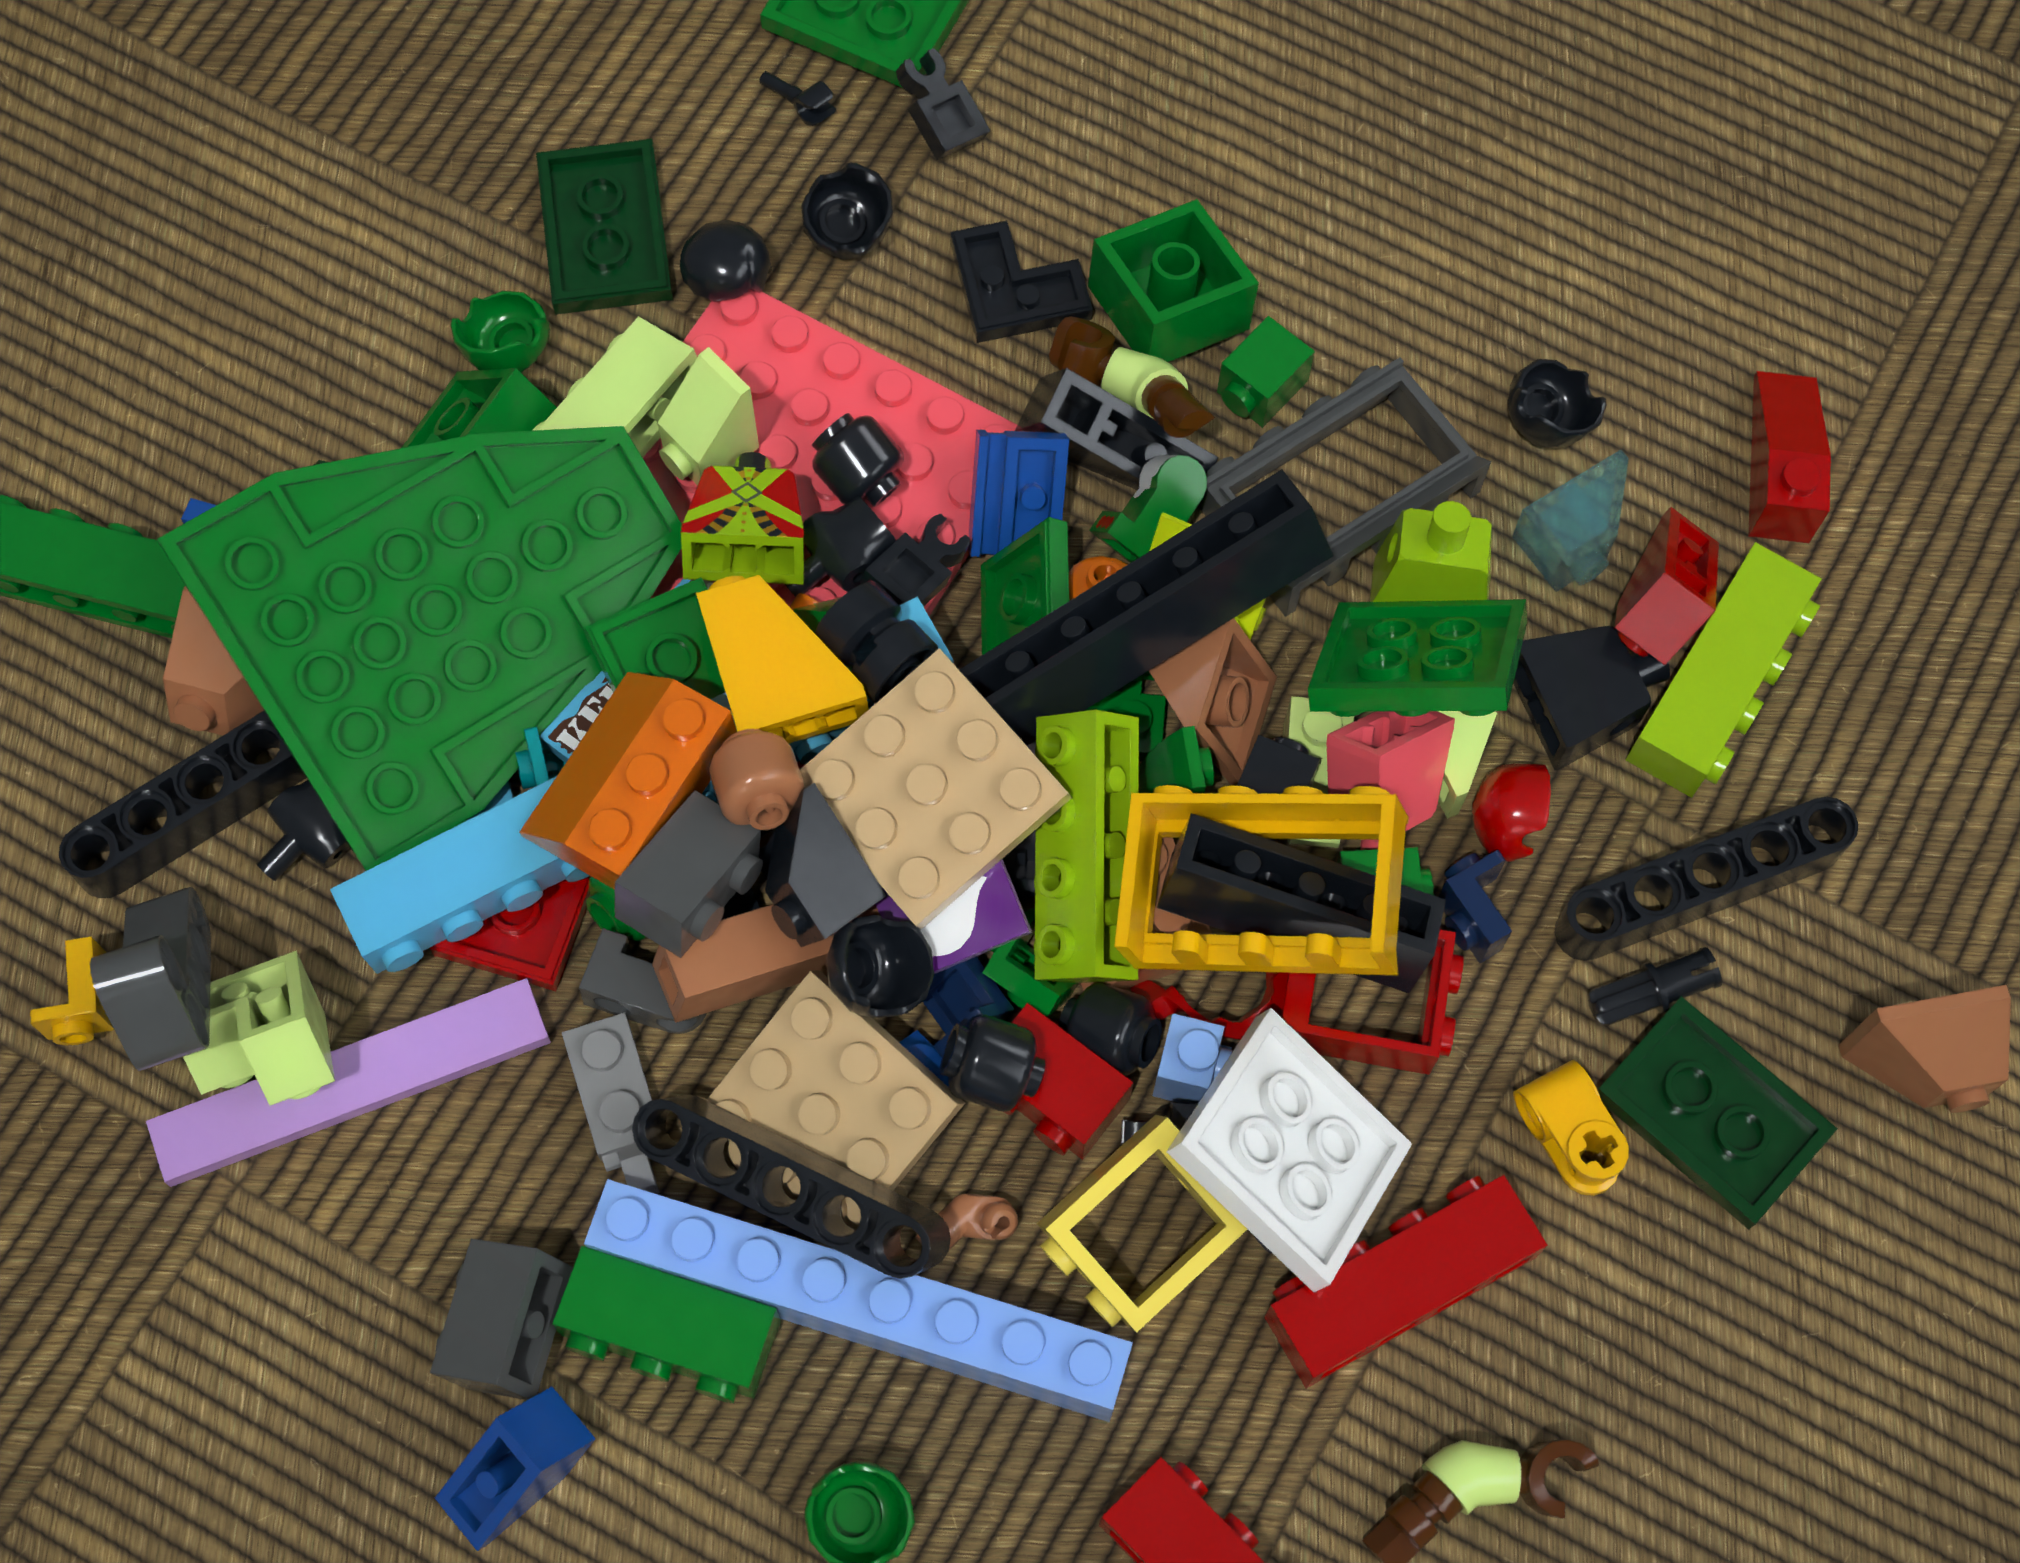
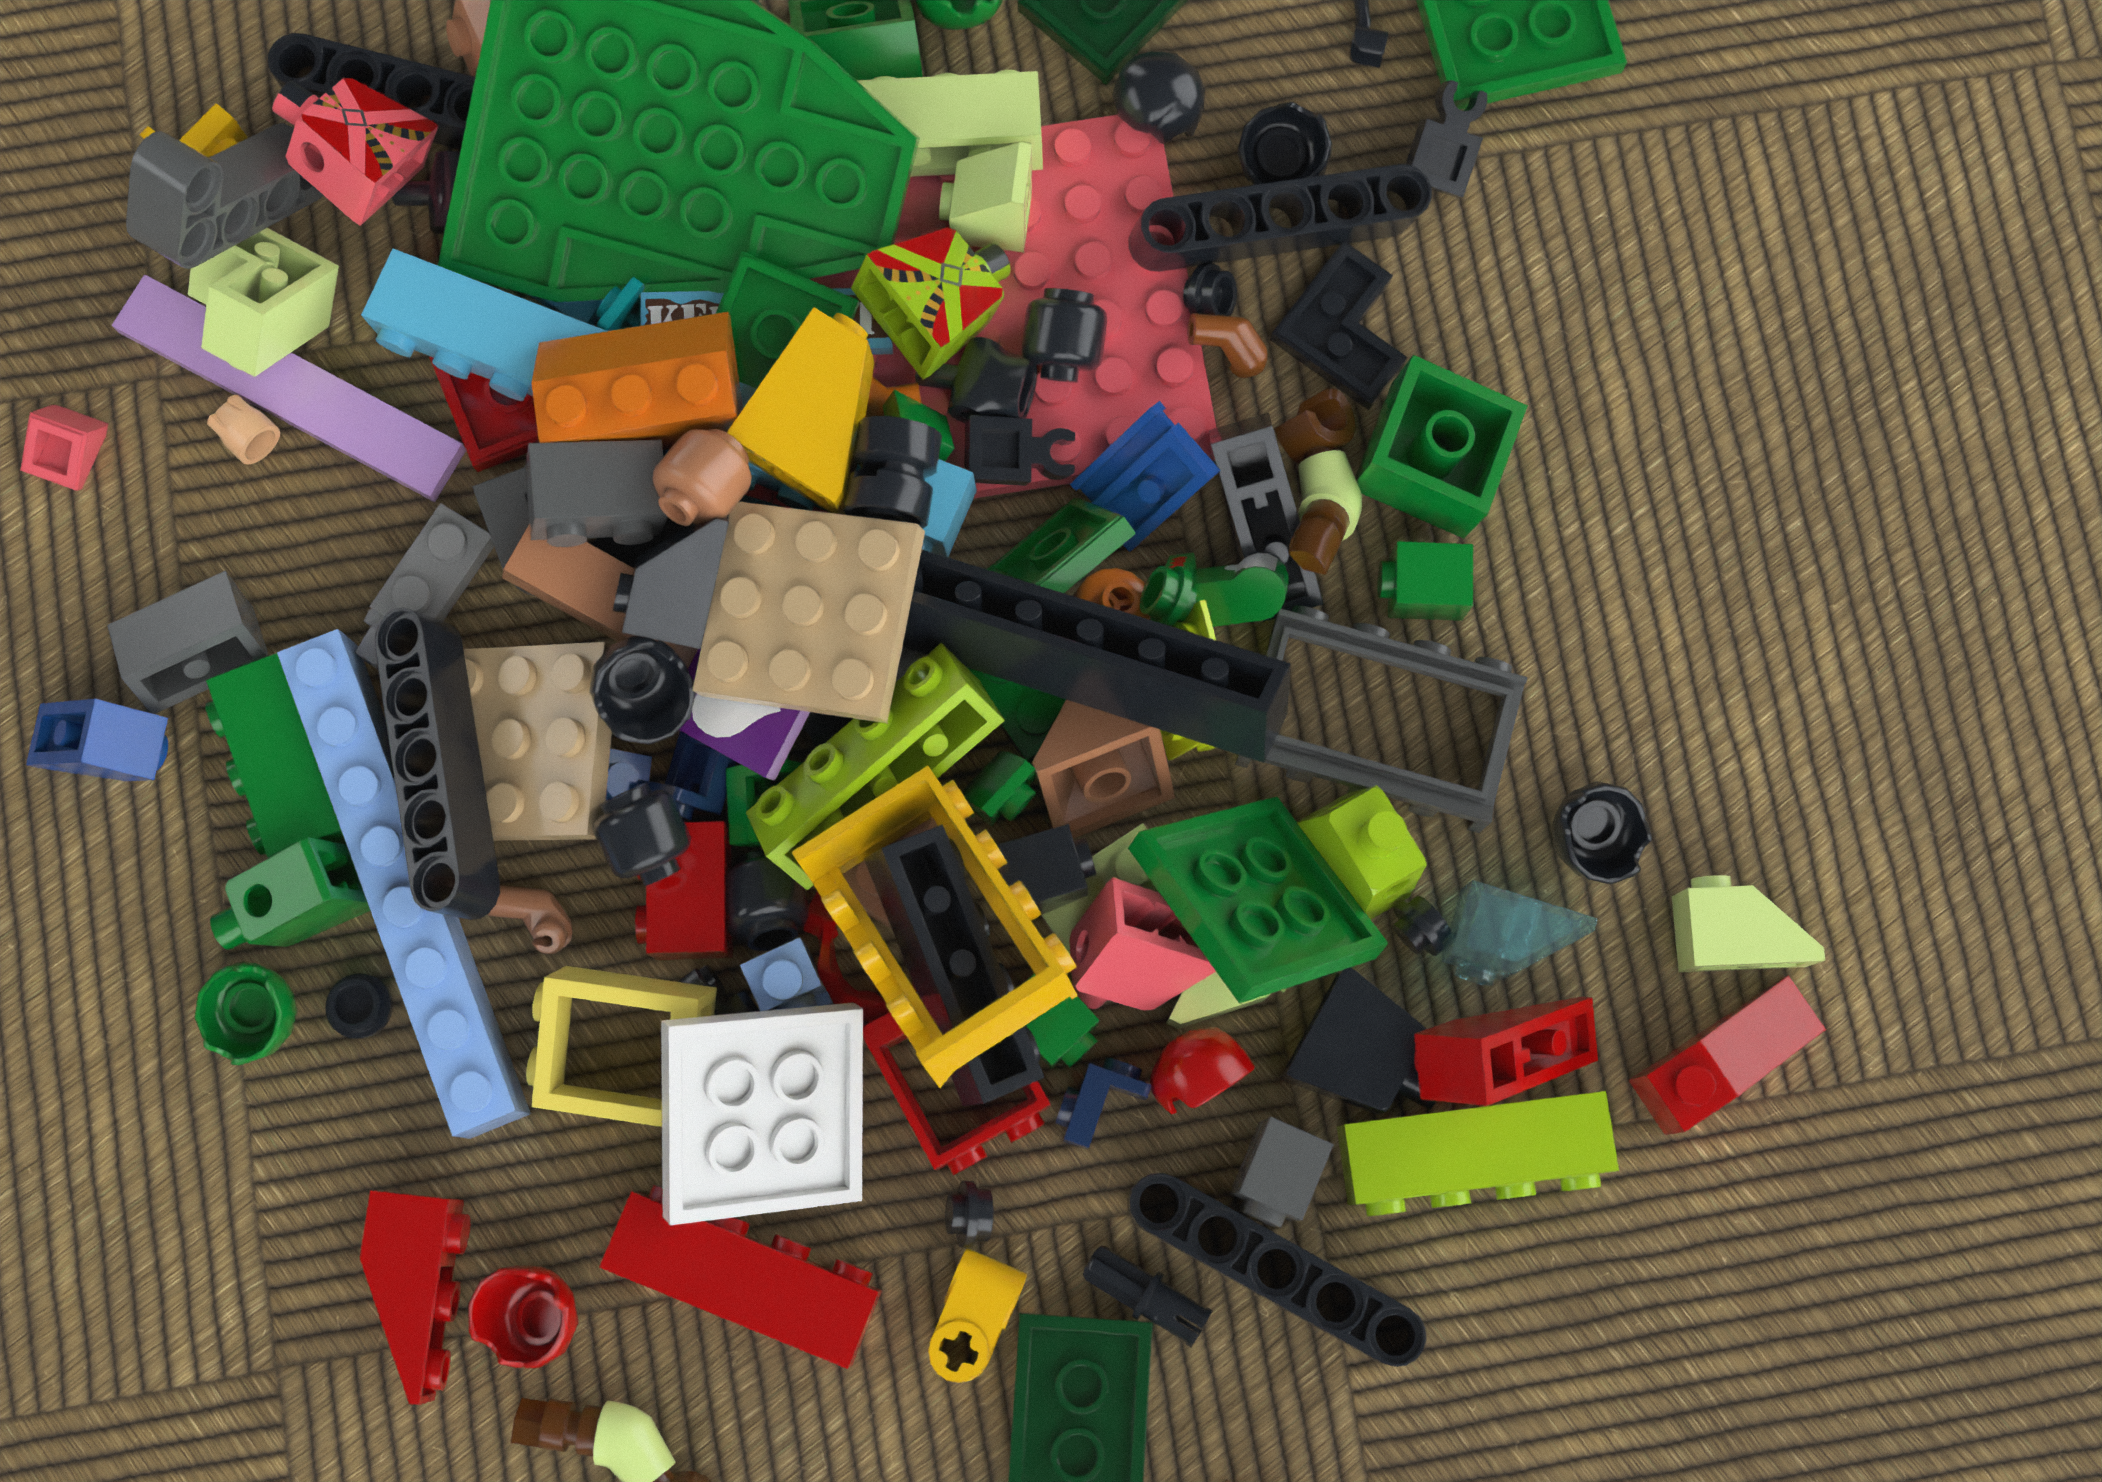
camera: 50 degrees right, 10 degrees up
(208, 856) = (354, 143): none -> coral torso
(227, 1307) = (62, 445): none -> coral slope
(355, 1142) = (244, 430): none -> light nougat hose
(813, 1371) = (291, 896): none -> green torso
(898, 254) = (1301, 200): none -> black beam
(910, 348) = (1210, 291): none -> black plate
(927, 1423) = (359, 1006): none -> black plate
(961, 355) = (1235, 337): none -> dark orange arm
(1131, 535) = (1168, 595): none -> green plate
(1302, 1476) = (523, 1315): none -> red hair
(1489, 1068) = (969, 1214): none -> black plate
(1524, 576) = (1420, 926): none -> black plate
(1639, 807) = (1279, 1172): none -> dark grey brick
(1698, 374) = (1736, 930): none -> yellowish green slope

